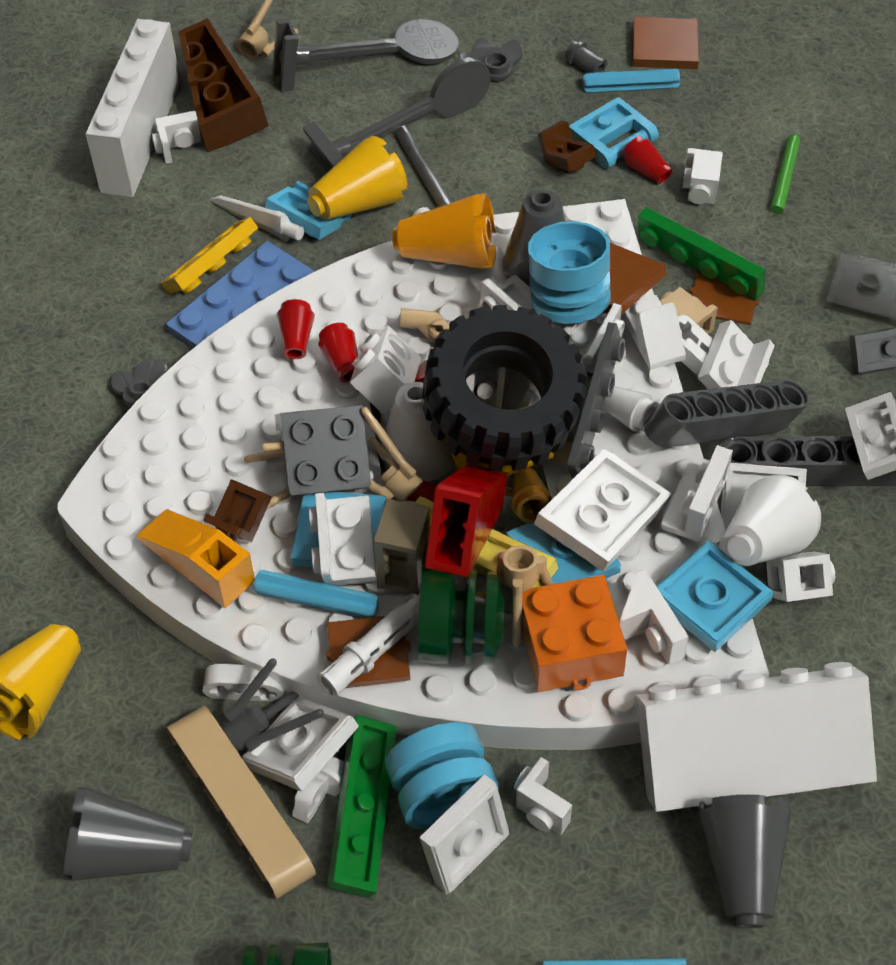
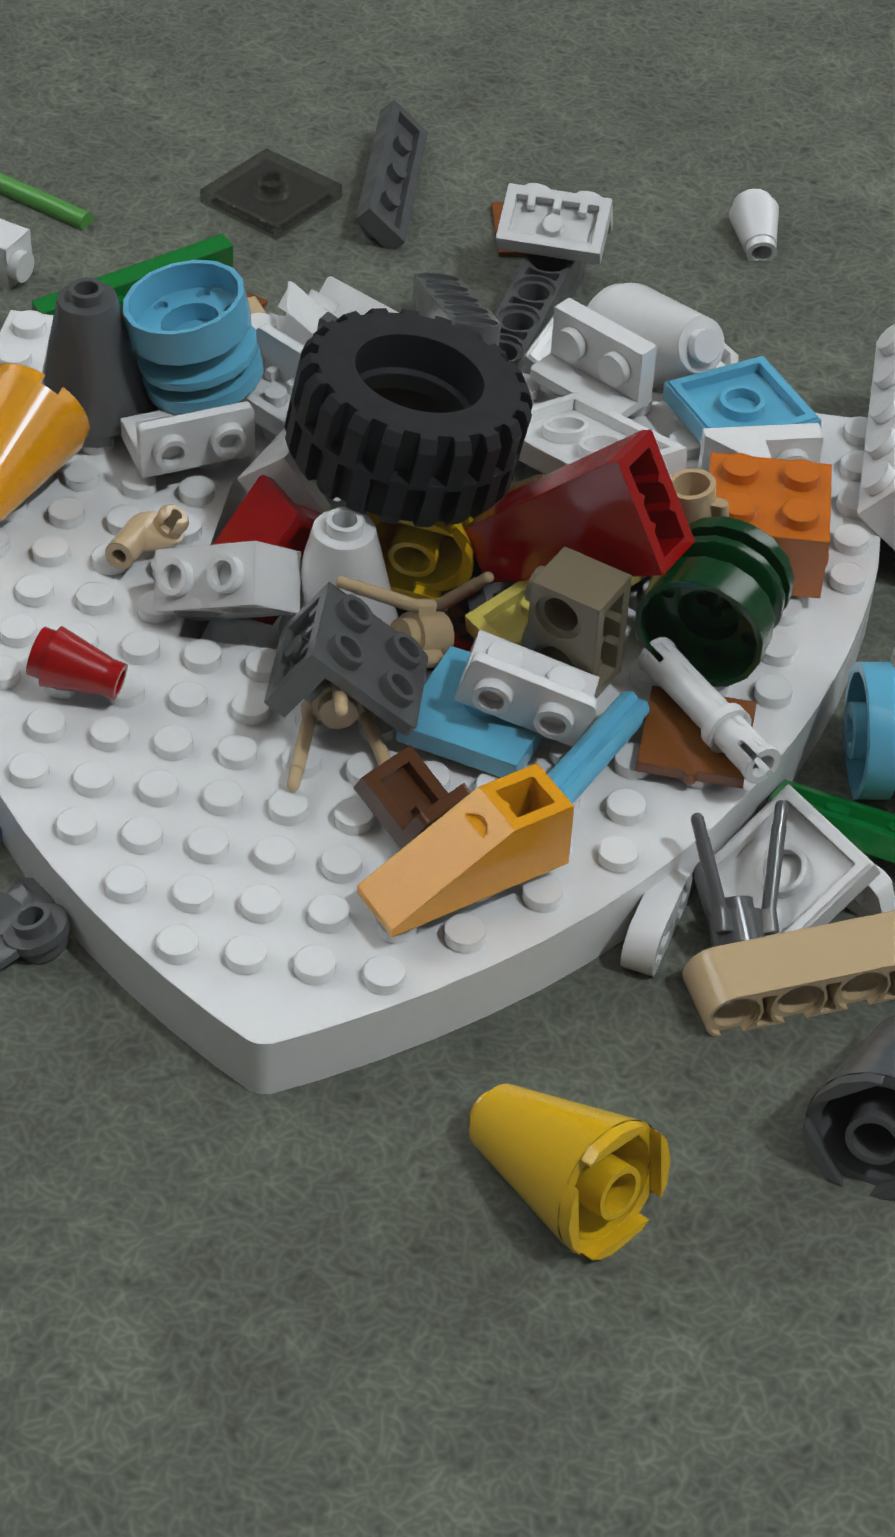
camera: 75 degrees left, 10 degrees down
(339, 348) = (154, 627): red cone -> none

